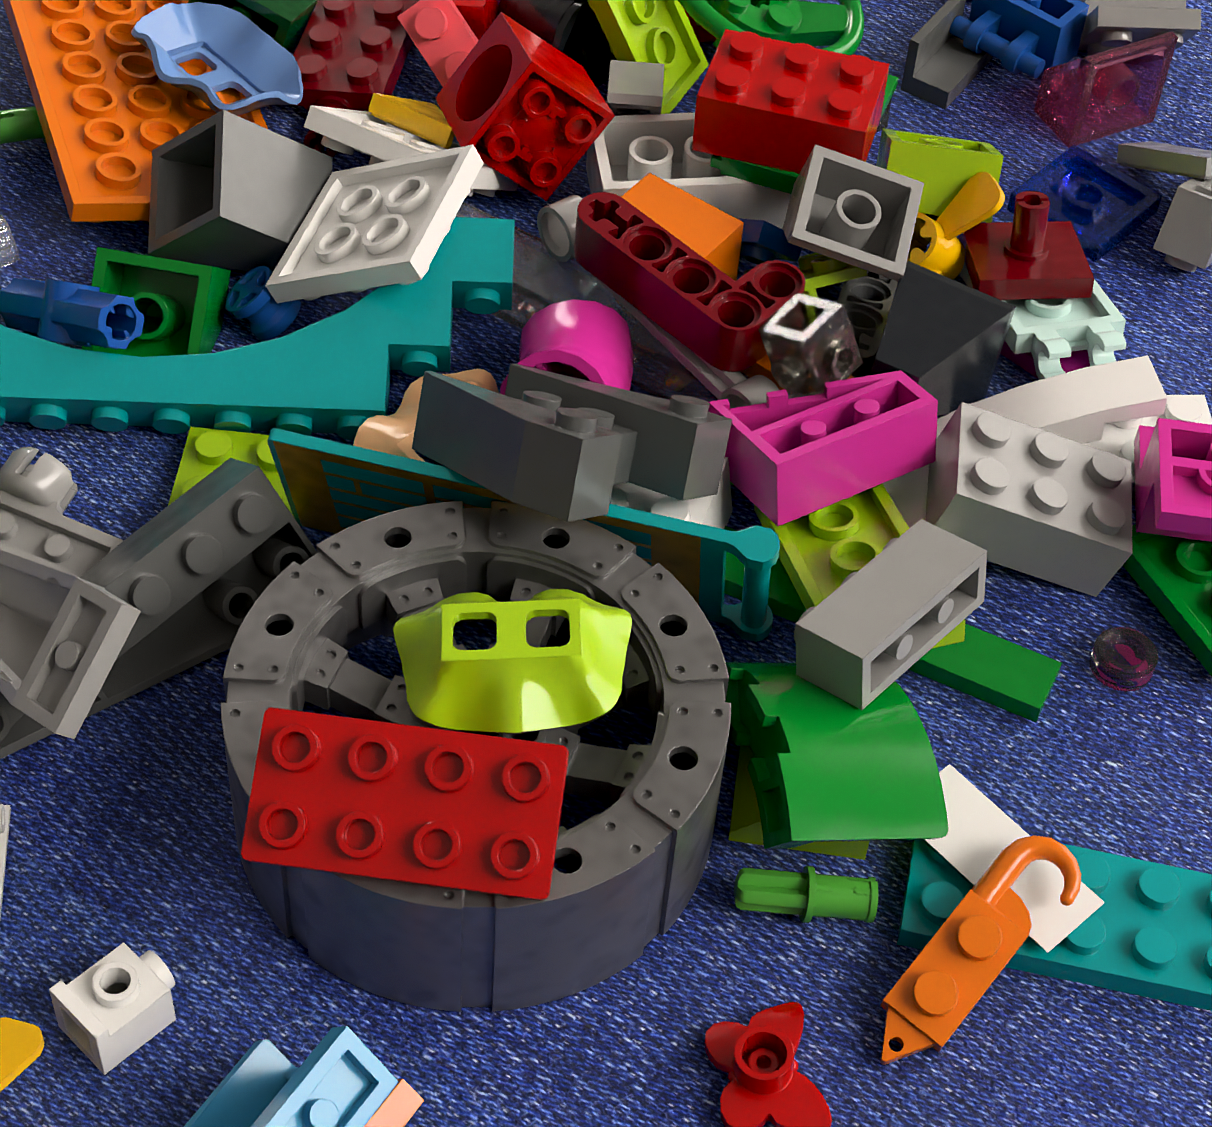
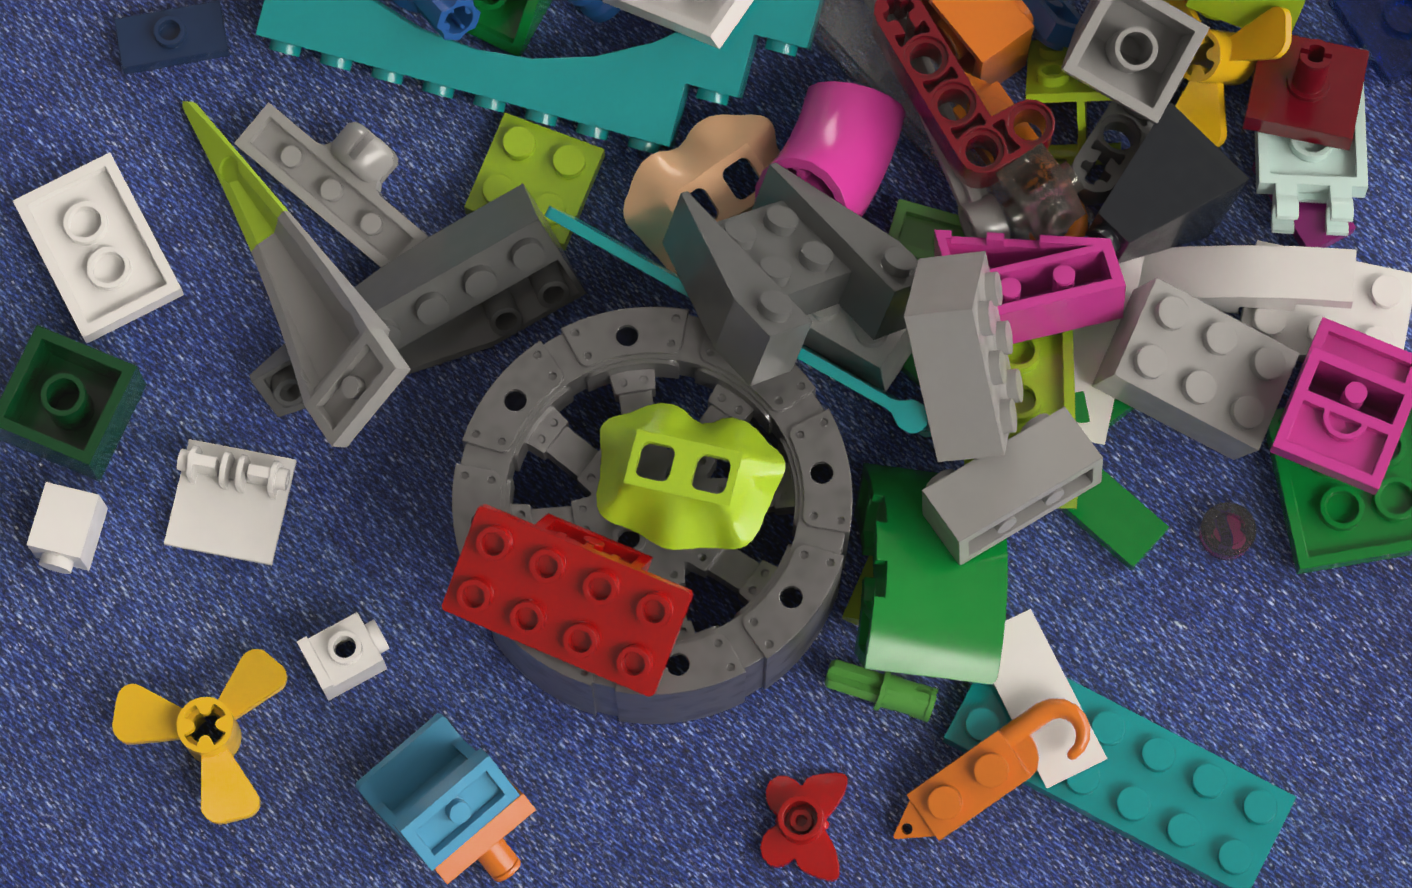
camera: 20 degrees right, 25 degrees up
(799, 475) = (963, 356): none -> light grey brick

